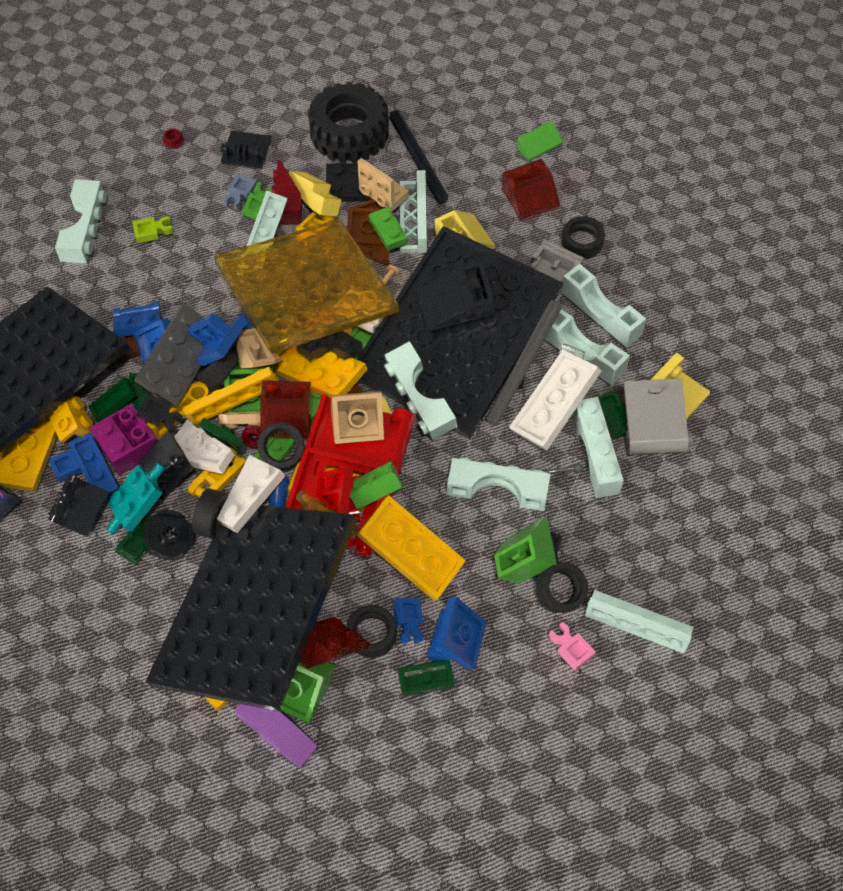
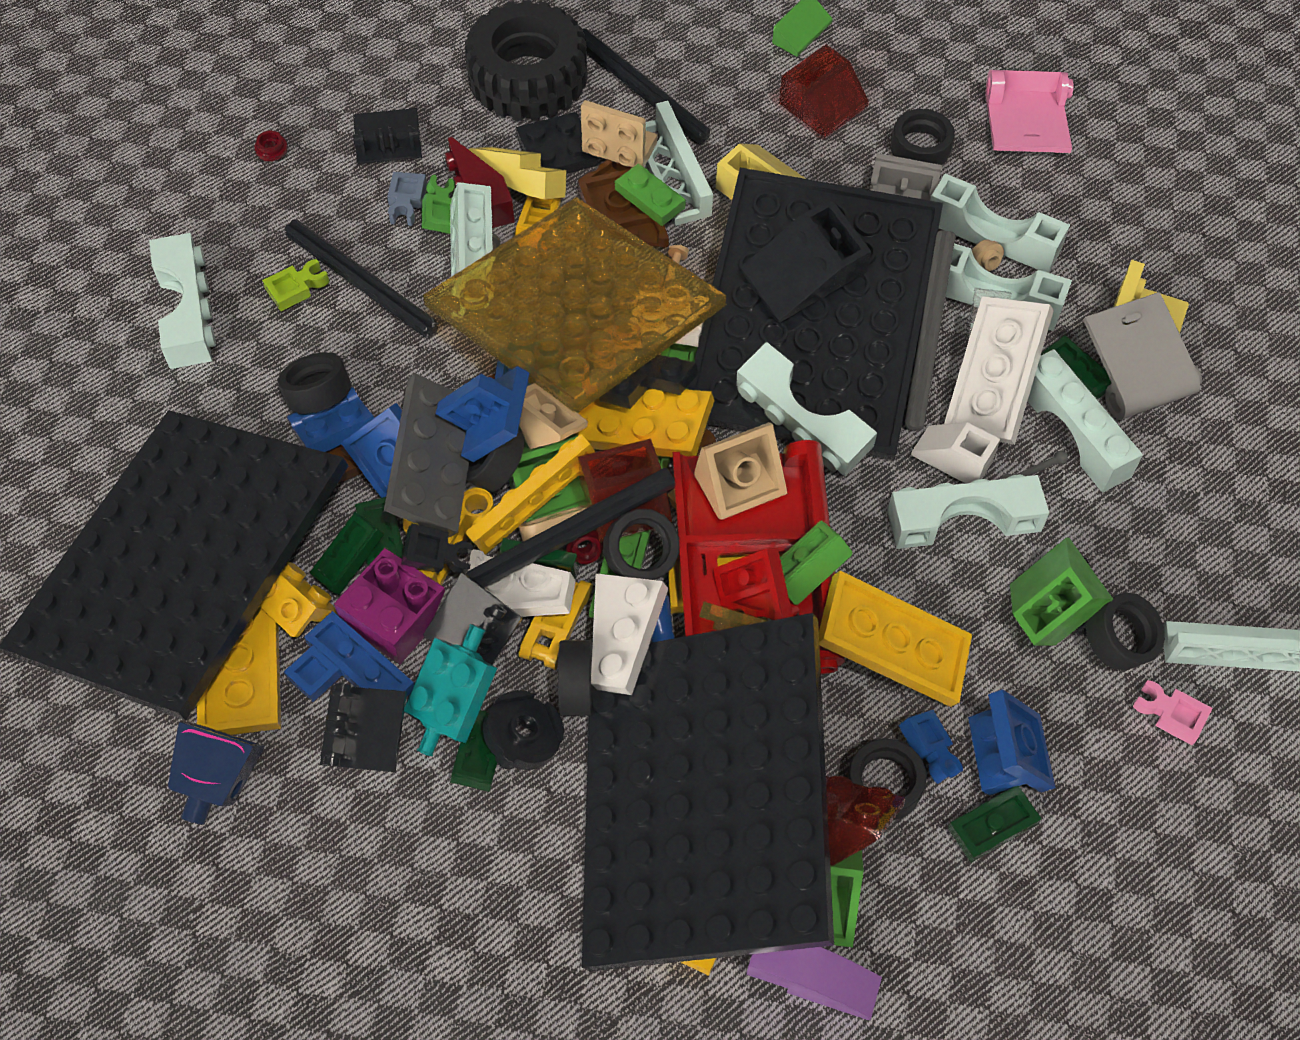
camera: 20 degrees left, 0 degrees up
(135, 292) = (314, 382): none -> black tyre
(191, 234) = (361, 278): none -> black axle
(243, 423) = (572, 528): none -> black axle
(509, 444) = (957, 450): none -> white slope
(589, 325) = (988, 254): none -> tan plate
(664, 236) = (1028, 110): none -> bright pink door

